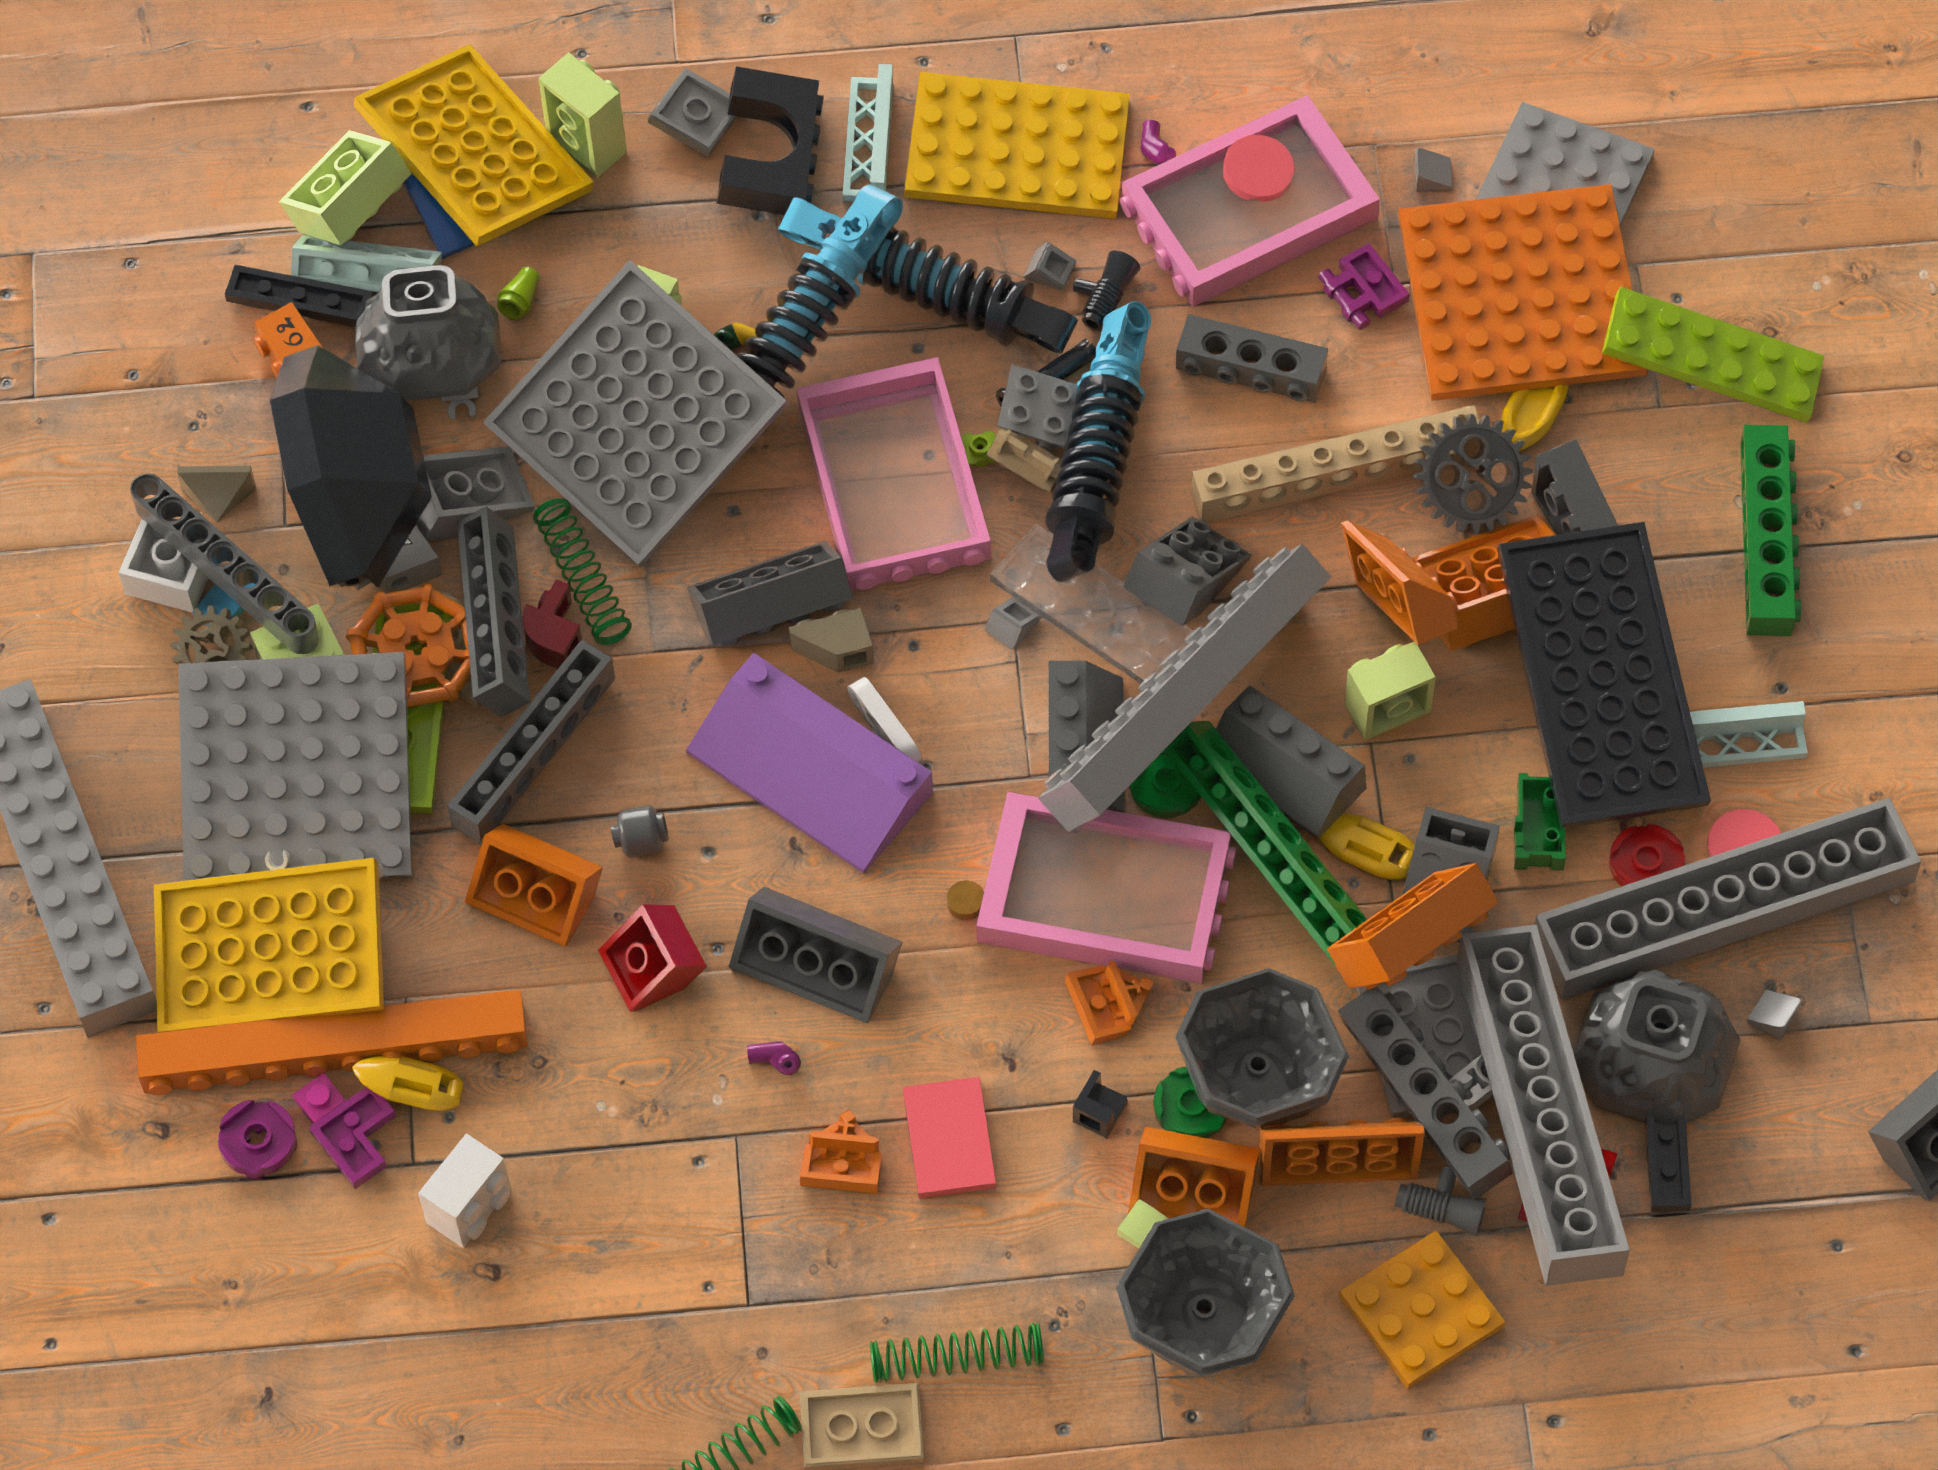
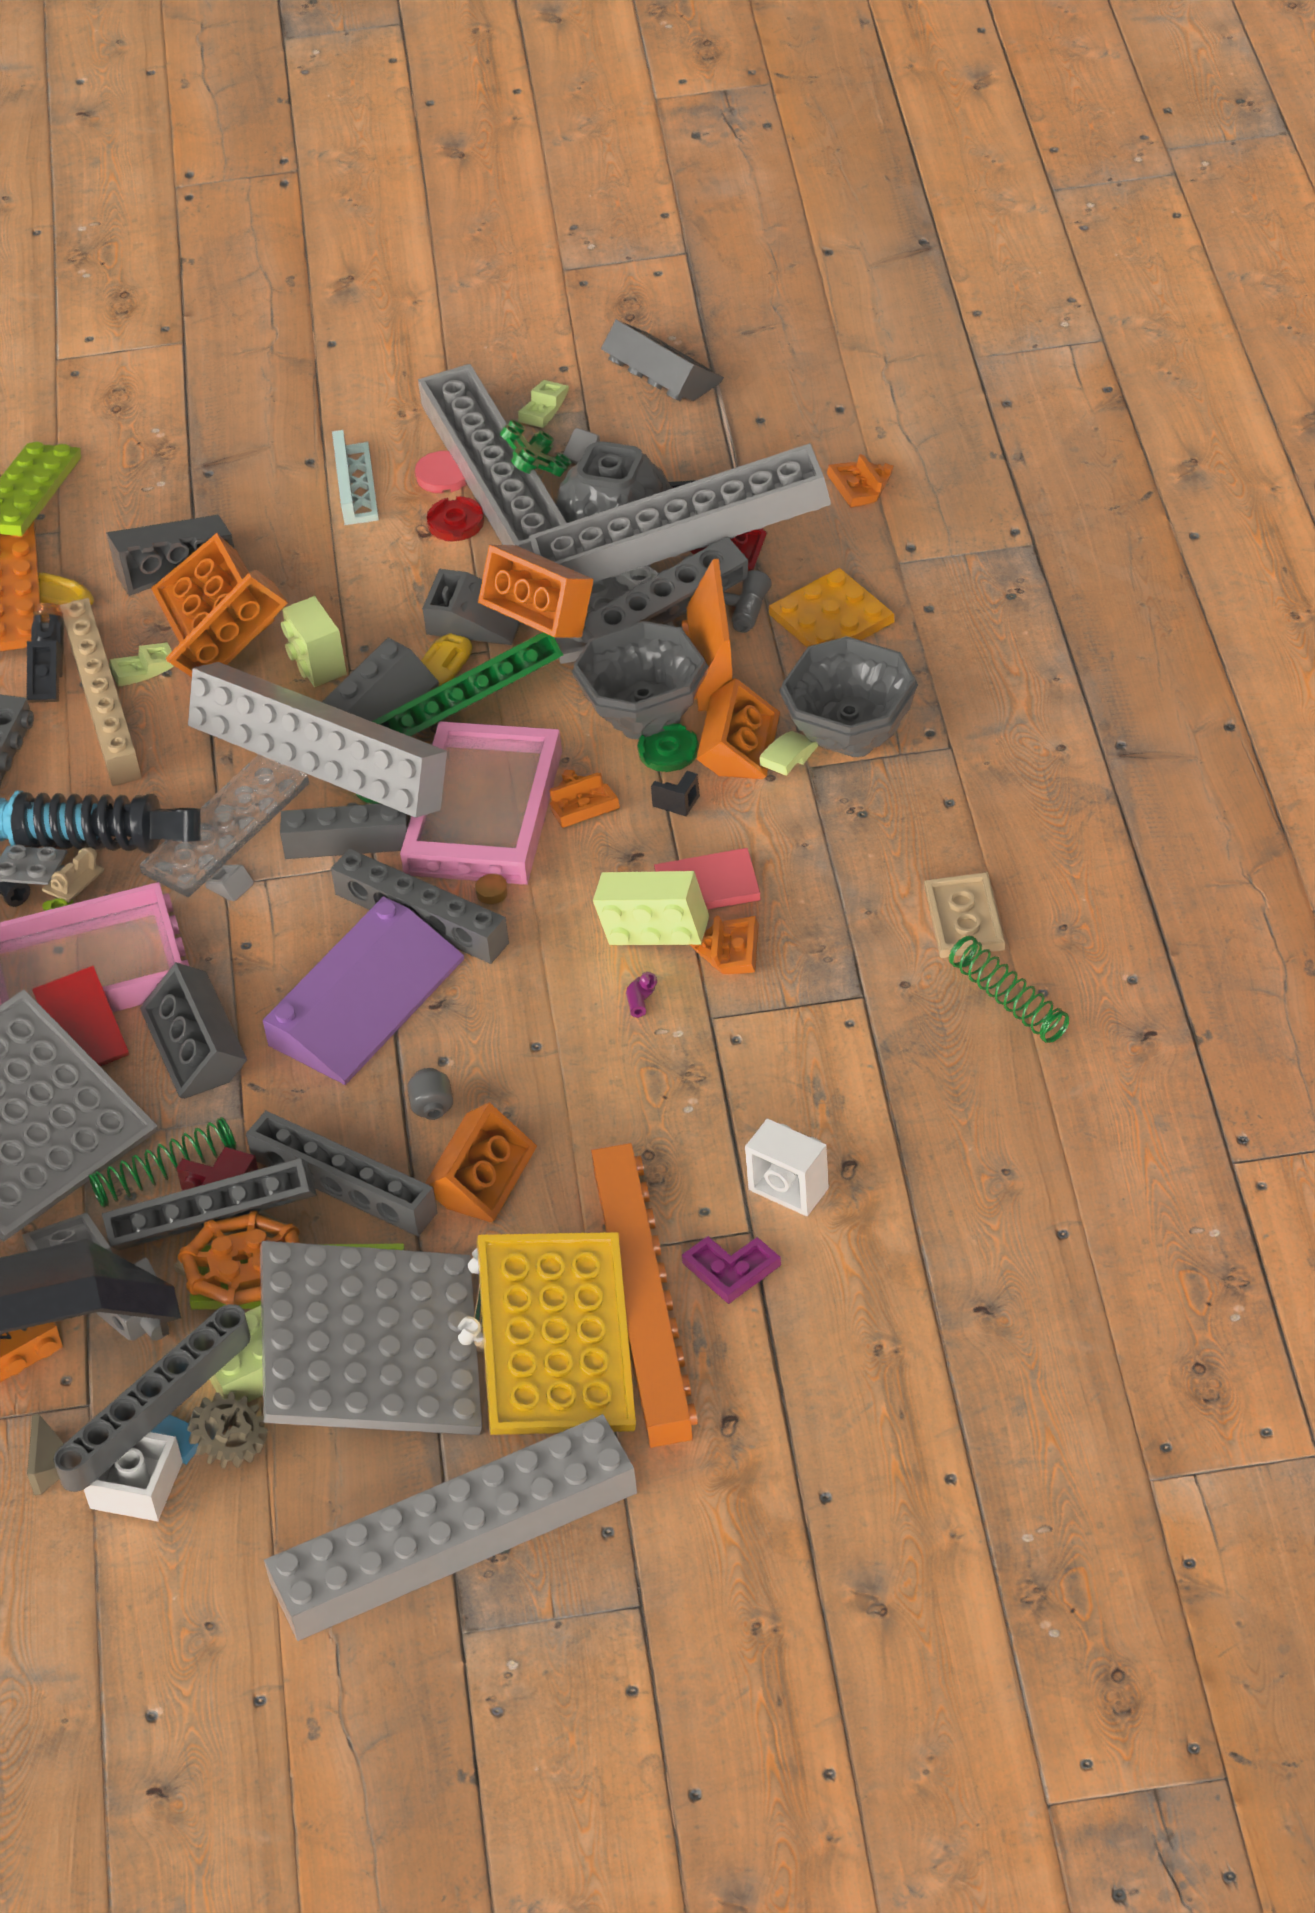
camera: 90 degrees left, 15 degrees down
(260, 1159) = (737, 1356): magenta plate -> none
(318, 1098) = (696, 1301): dark pink plate -> none
(410, 1082) = (679, 1228): yellow piece -> none
(651, 956) = (552, 1077): red slope -> none
(787, 475) = (84, 1013): none -> red tile
(814, 954) = (546, 971): dark grey slope -> none
(834, 641) = (245, 981): dark tan slope -> none
(872, 1058) = (651, 908): none -> yellowish green brick
(881, 718) = (307, 955): white beam -> none
(933, 818) = (454, 918): none -> dark grey brick
(1034, 1334) = (908, 890): green piece -> none
(1185, 570) = (193, 771): dark grey slope -> none
(1392, 510) = (146, 665): none -> yellowish green slope
(1396, 400) = (45, 654): none -> black plate
(1451, 498) = (121, 605): dark grey gear -> none
(1537, 826) = (419, 568): green piece -> none
(1603, 675) = (310, 519): black plate -> none
(1689, 1363) = (860, 480): none -> orange slope
(1731, 937) = (533, 454): none -> green plant
(1766, 613) = (178, 463): green brick -> none
(1880, 970) = (544, 403): none -> yellowish green slope

